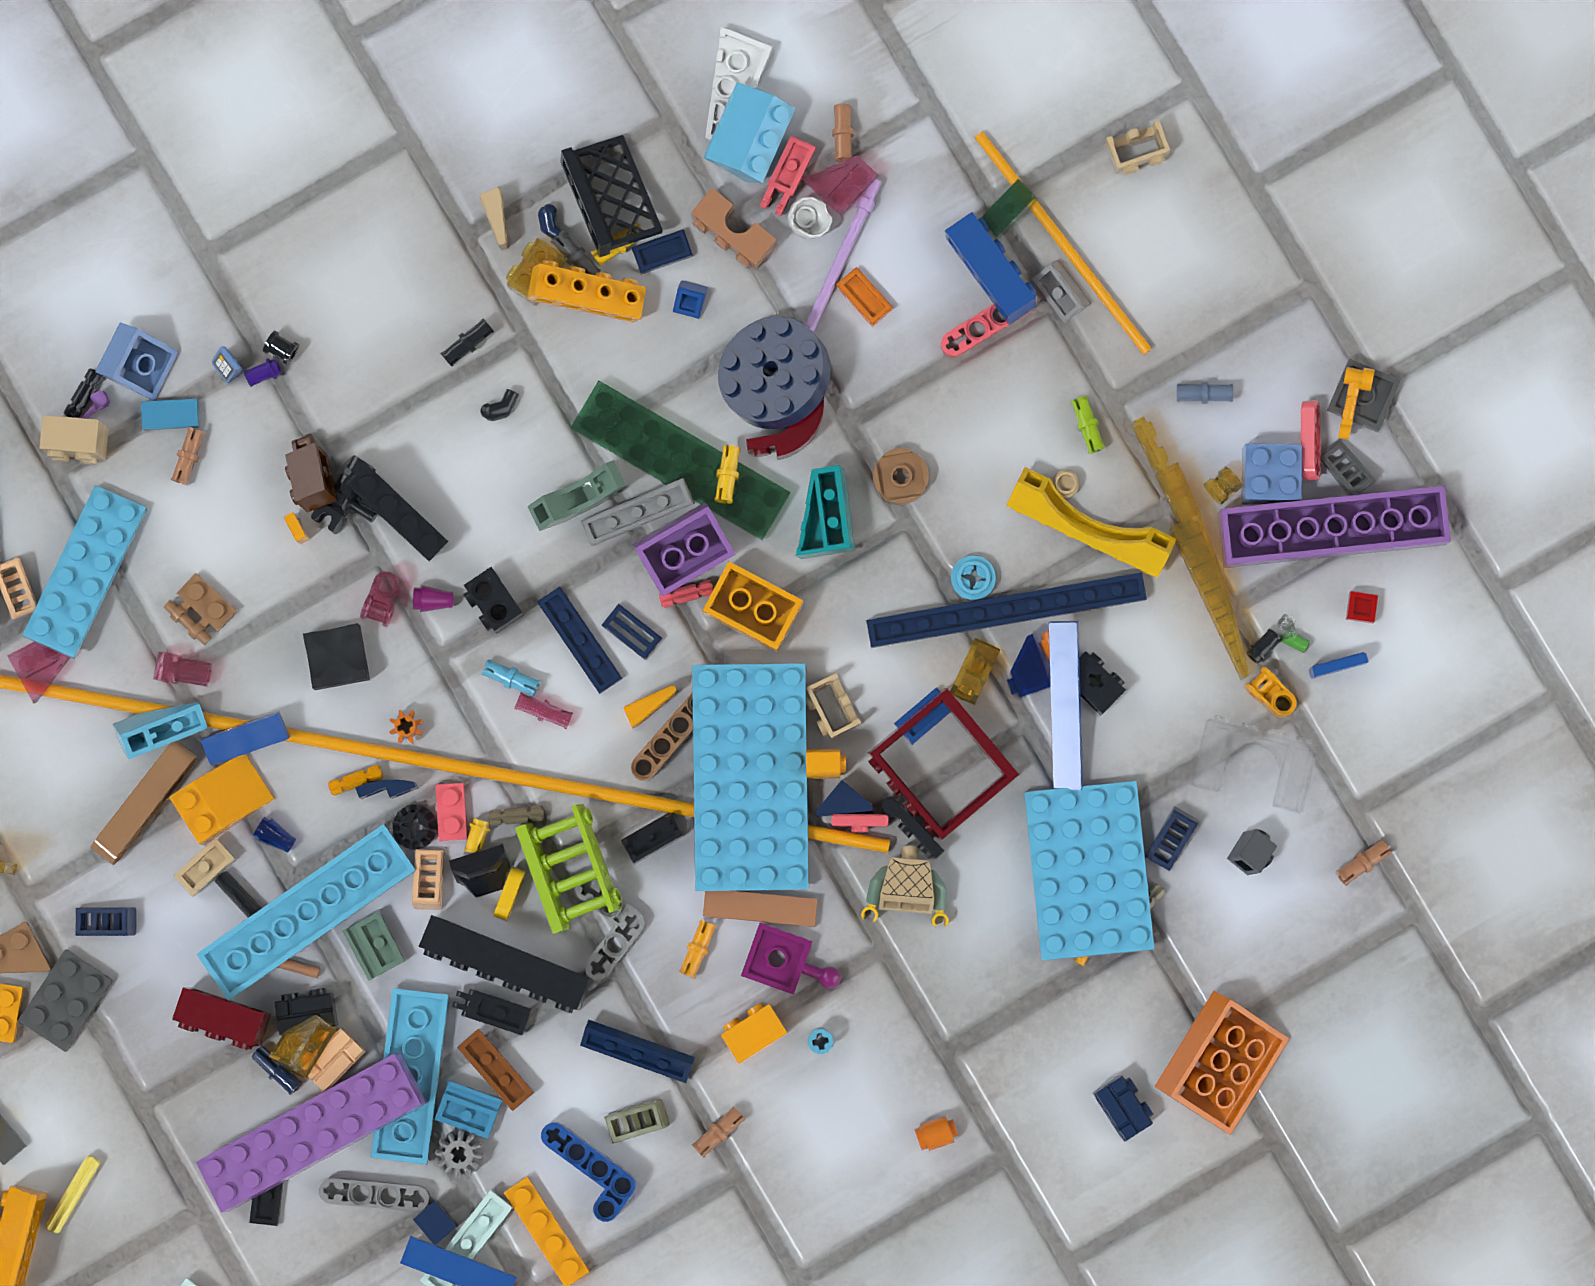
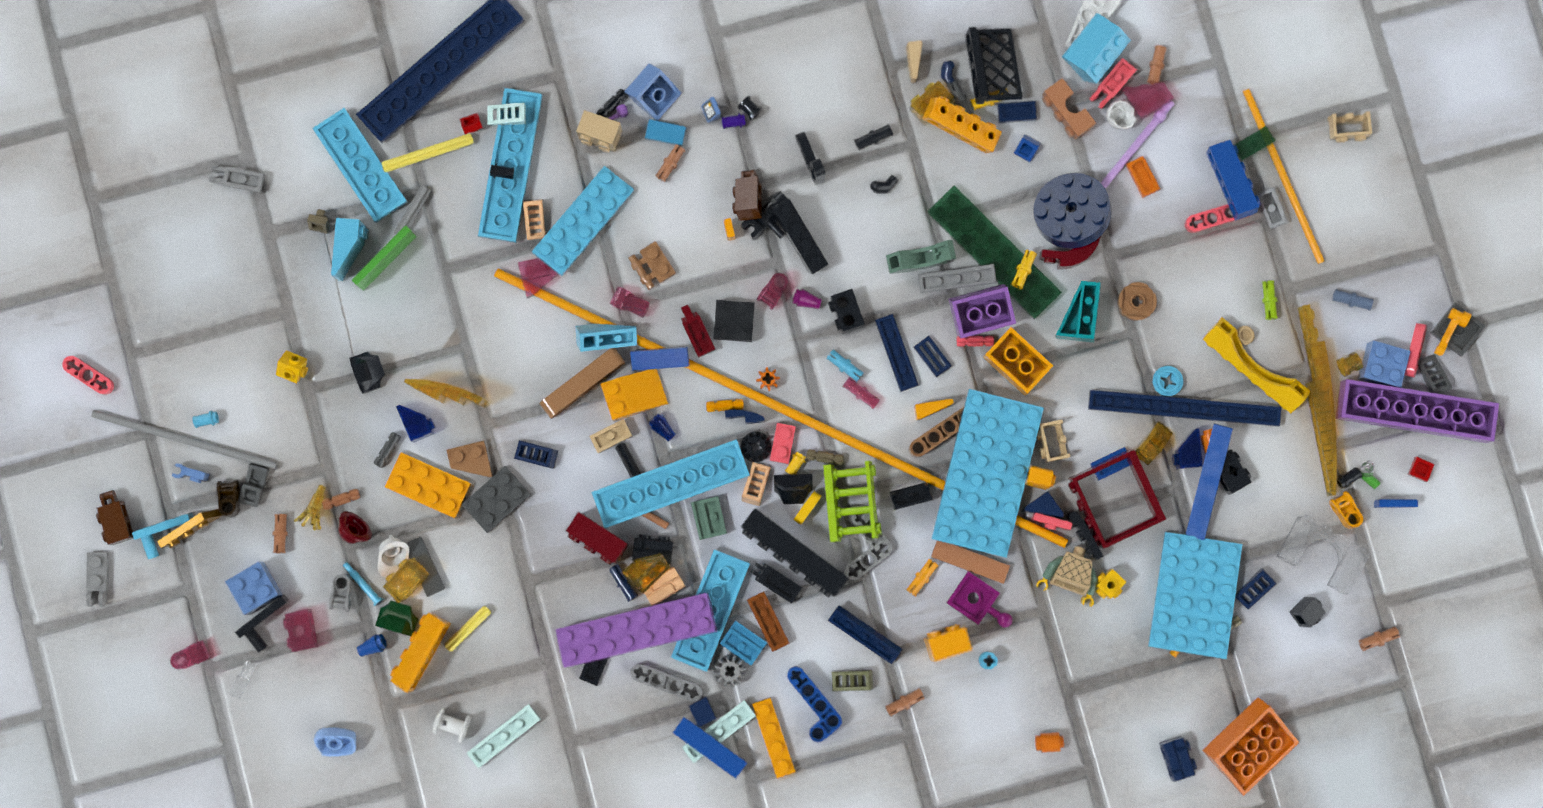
camera: 10 degrees right, 0 degrees up
(288, 687) = (696, 332): none -> dark red hinge
(384, 396) = (814, 165): none -> black beam
(971, 881) = (1115, 581): none -> yellow brick

